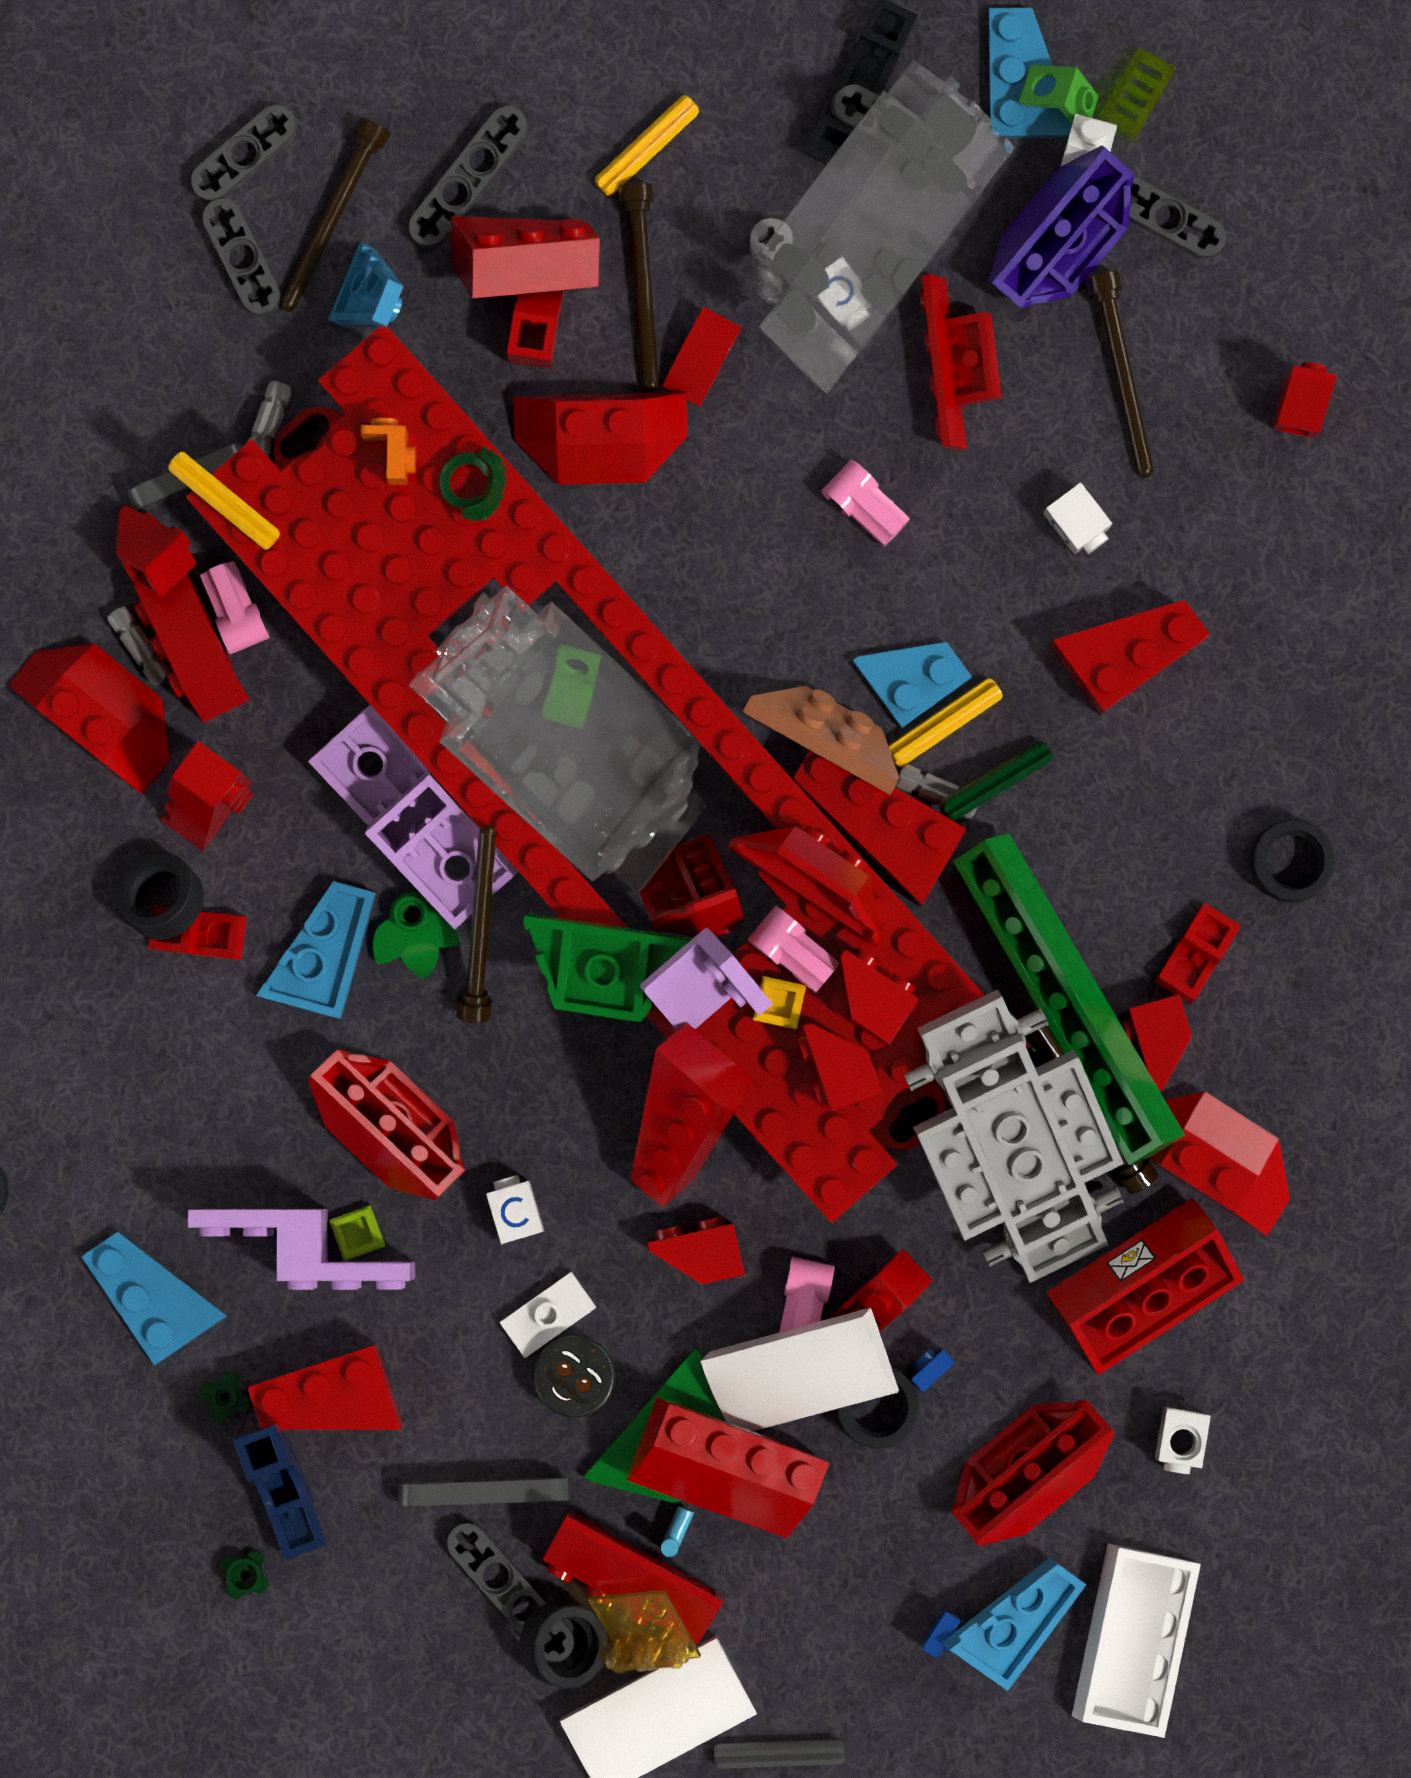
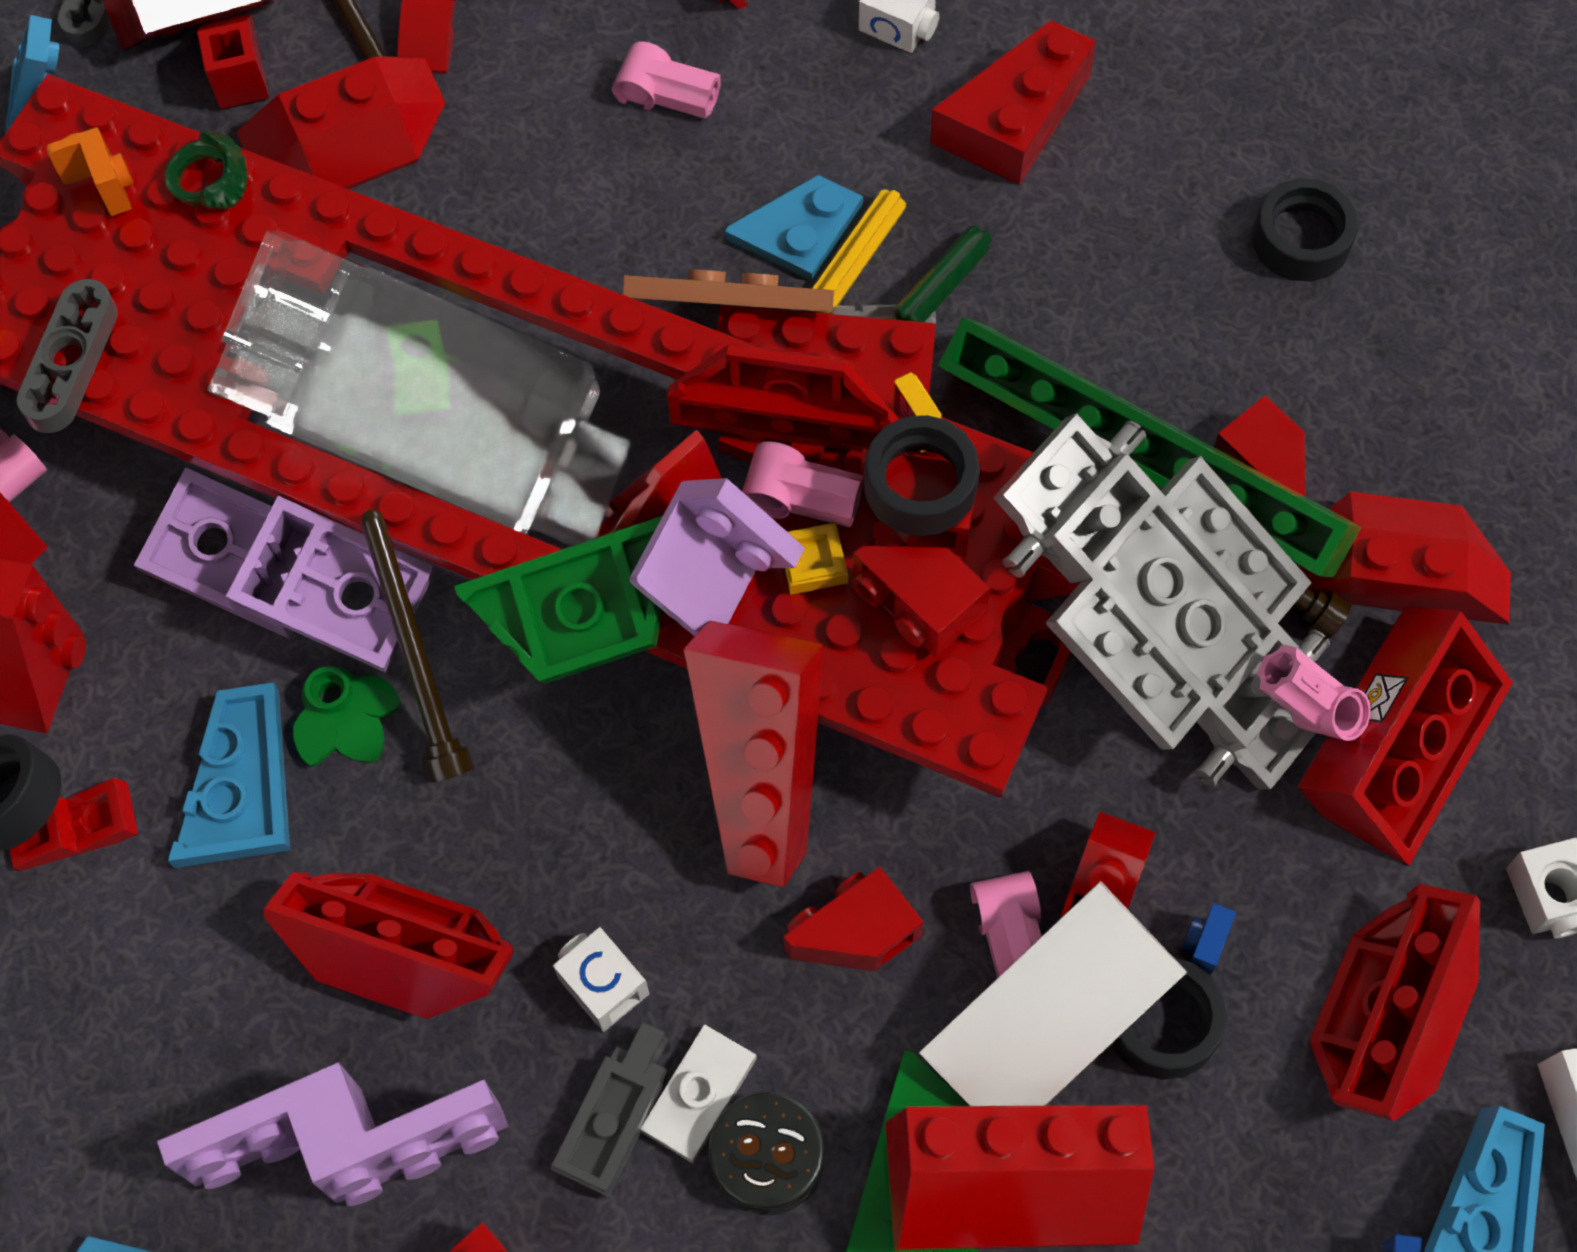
camera: 20 degrees left, 20 degrees down
(348, 582) = (73, 379): none -> dark grey beam
(357, 1233) = (405, 1091): lime tile -> none
(486, 1304) = (613, 1114): none -> dark grey hinge
(901, 928) = (912, 398): none -> yellow tile
(905, 995) = (930, 435): none -> black tyre
(1082, 1244) = (1313, 696): none -> bright pink piece
(1197, 953) = (1256, 359): red slope -> none

